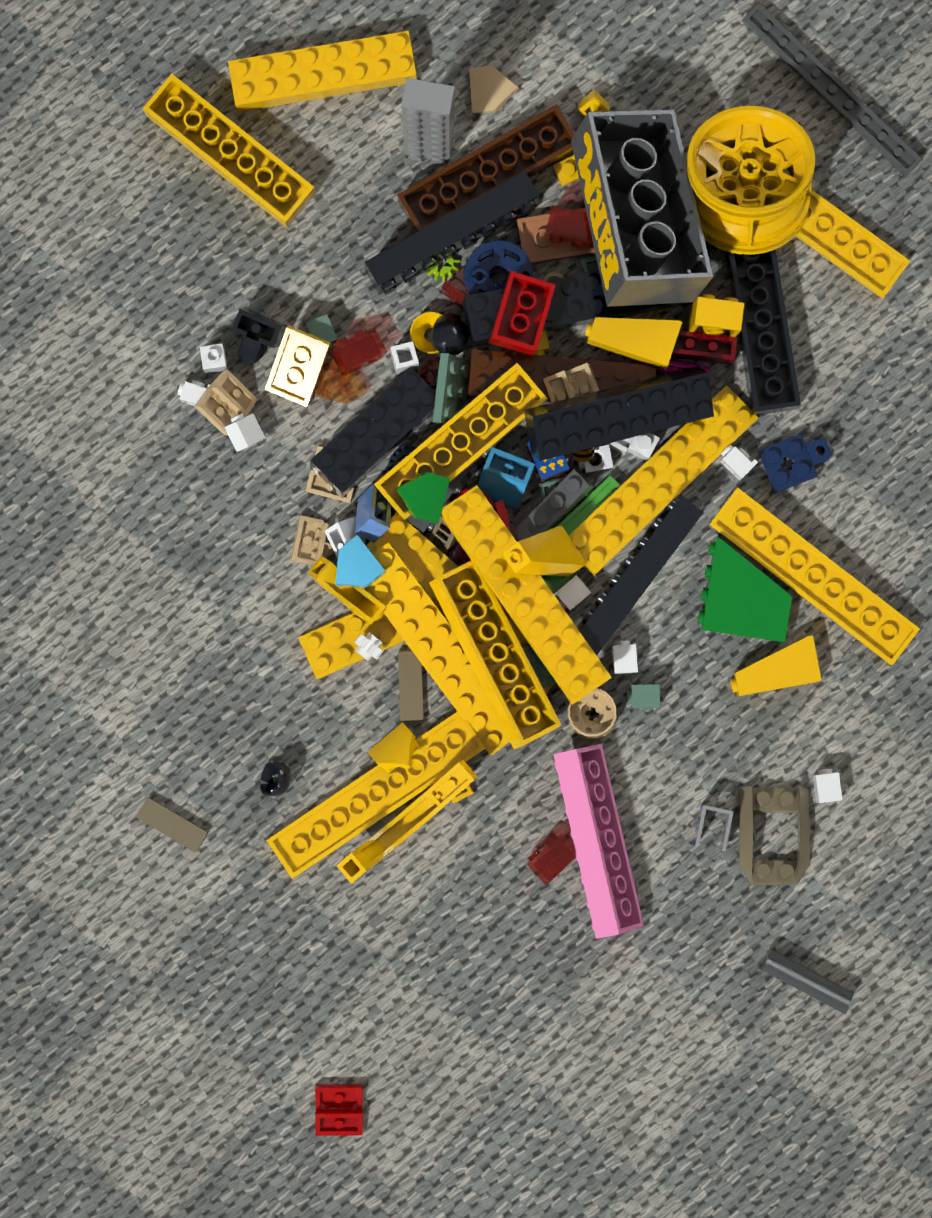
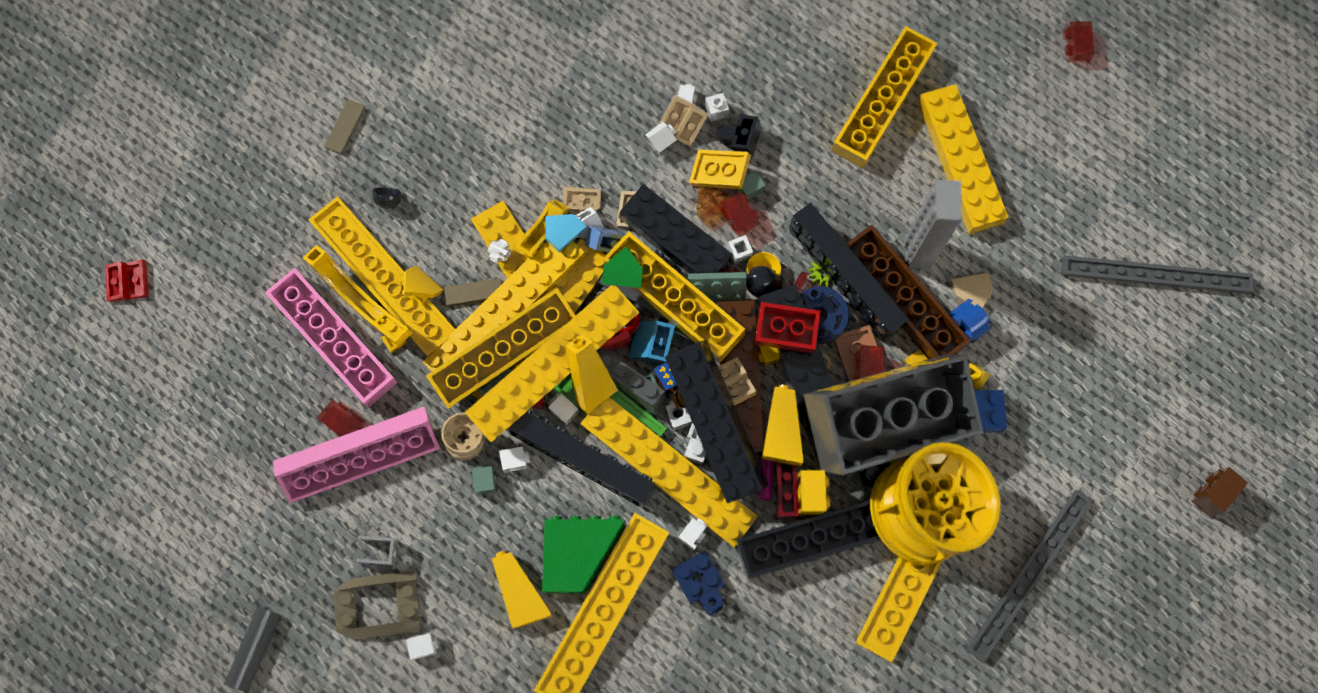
camera: 85 degrees right, 10 degrees down
(448, 861) = (331, 337): none -> bright pink brick
(530, 100) = (971, 320): none -> blue brick
(639, 95) = (991, 410): none -> blue brick

